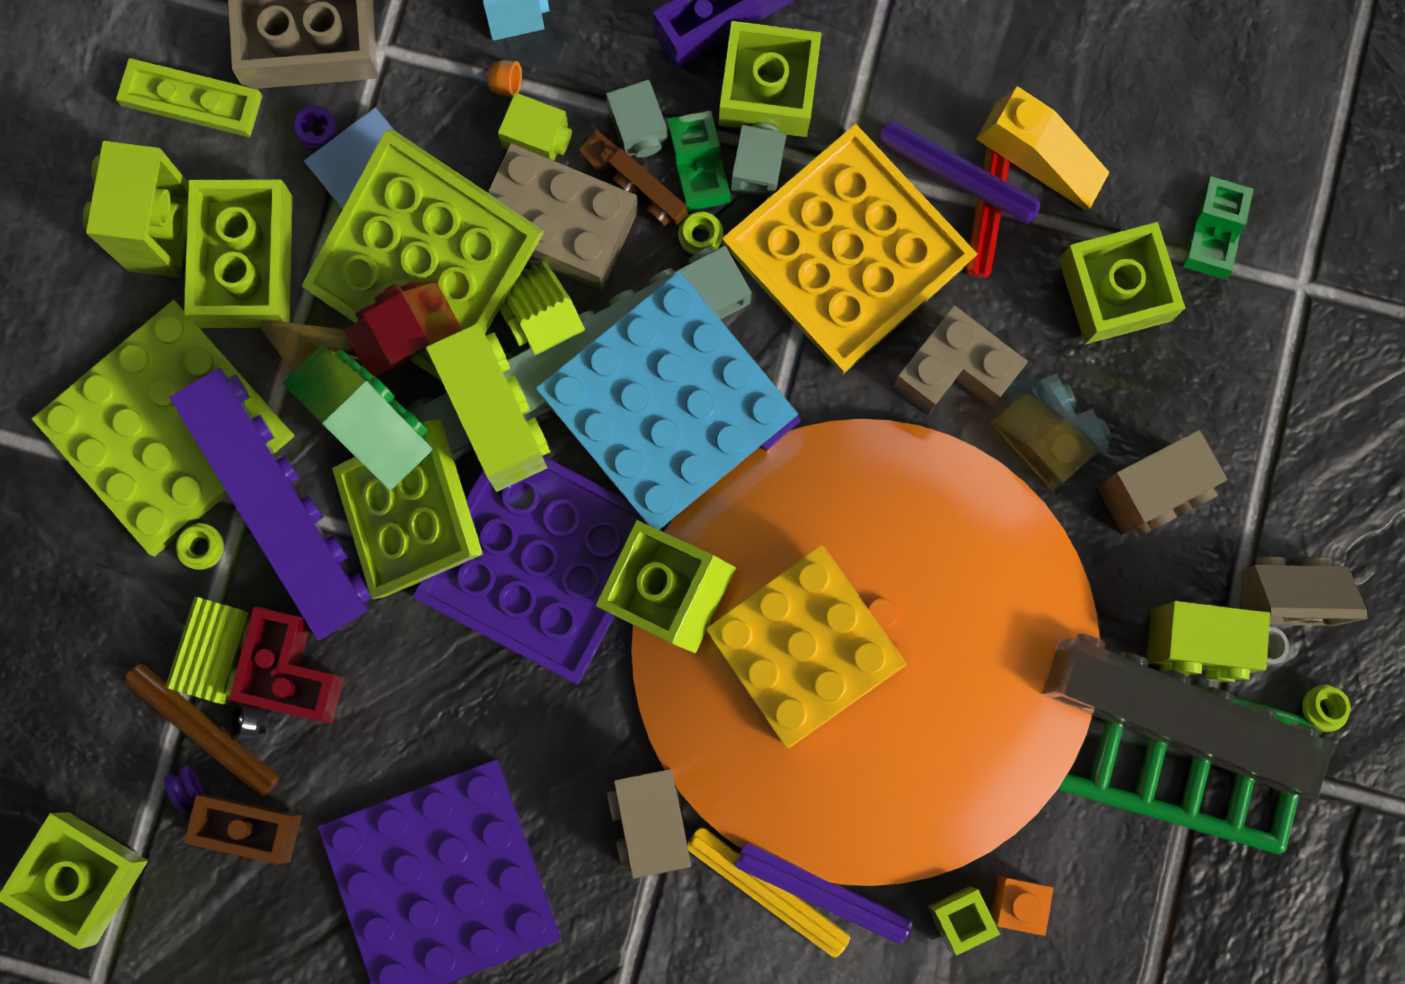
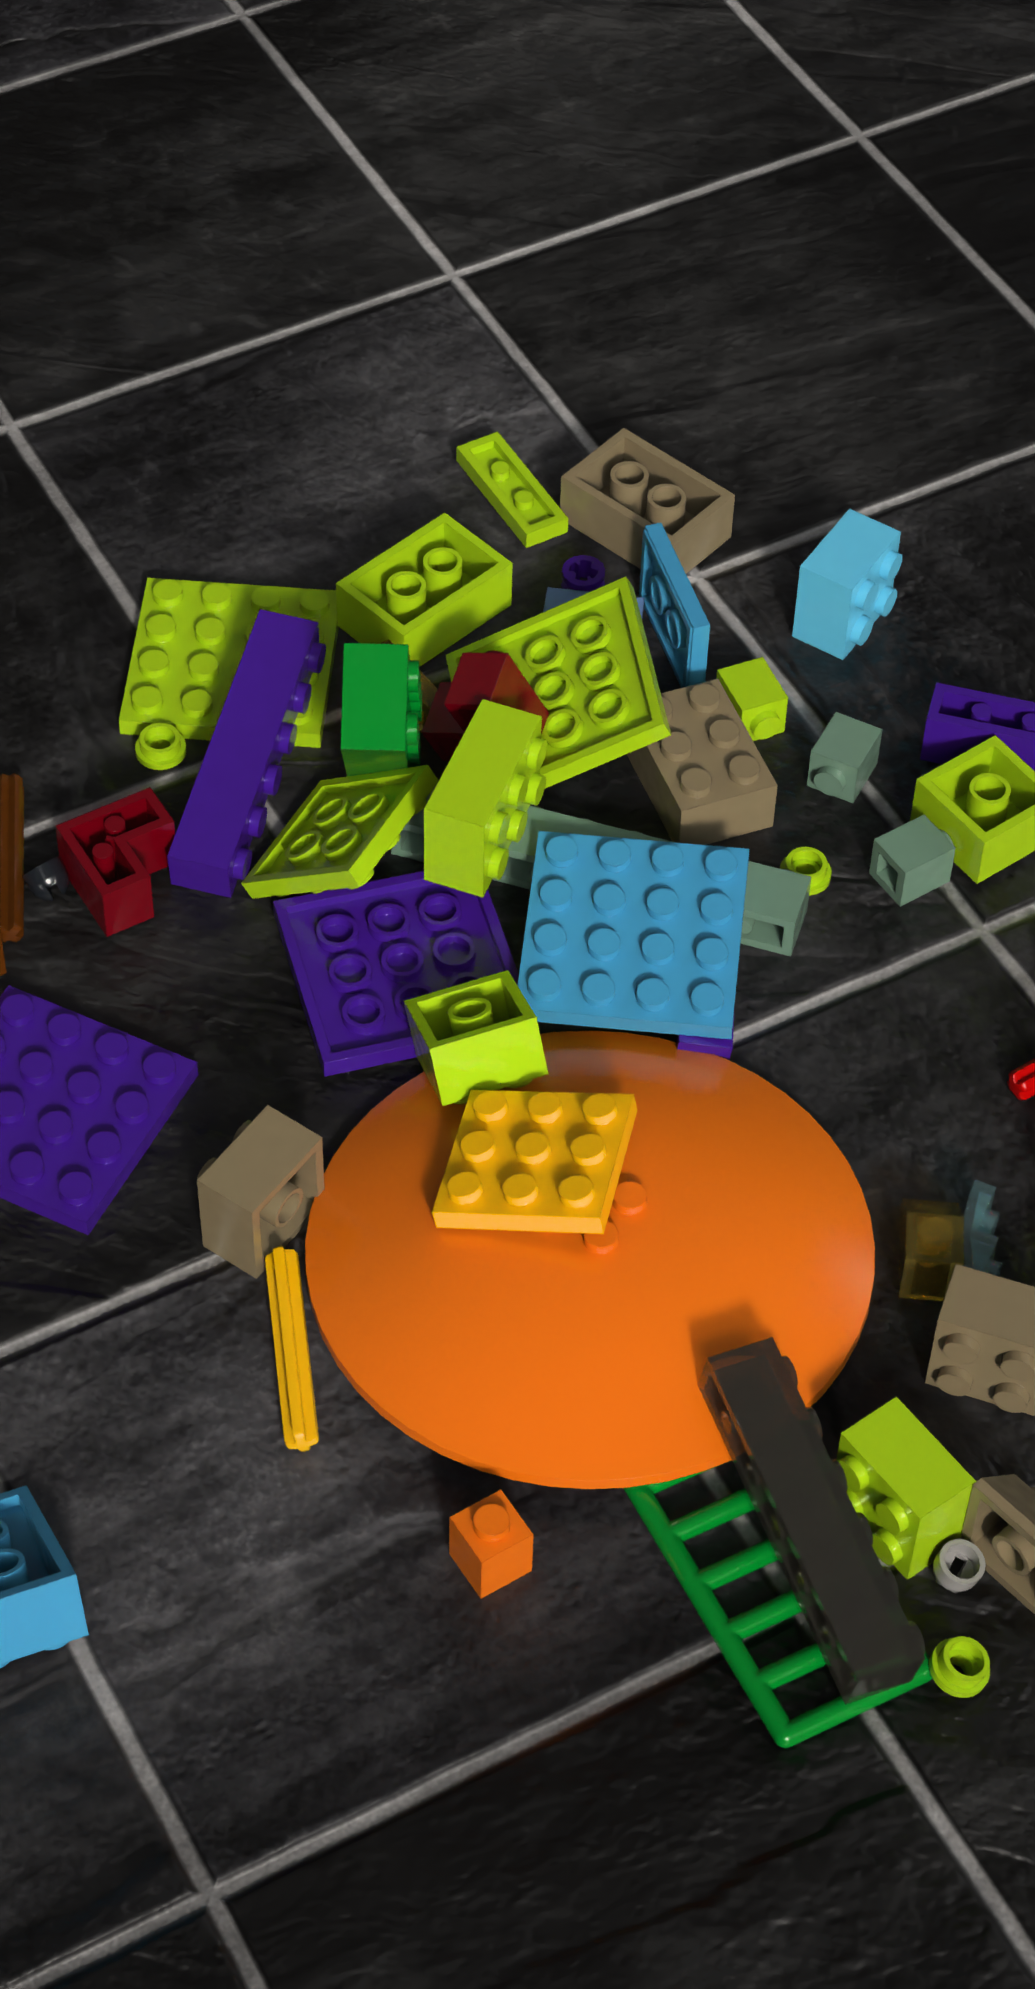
camera: 50 degrees right, 30 degrees down
(139, 209) = (383, 489): lime brick -> none
(209, 651) = (70, 798): lime brick -> none
(418, 108) = (673, 607): none -> dark azure tile
(504, 78) = (778, 662): orange hinge -> none
(540, 310) = (607, 797): lime brick -> none
(635, 179) = (788, 761): reddish brown hinge -> none
(698, 160) = (865, 817): green slope -> none
(823, 893) = (336, 1385): dark purple axle -> none
(848, 248) = (920, 978): yellow plate -> none
(959, 352) = (917, 1112): dark tan brick -> none
(963, 920) = (424, 1499): lime brick -> none

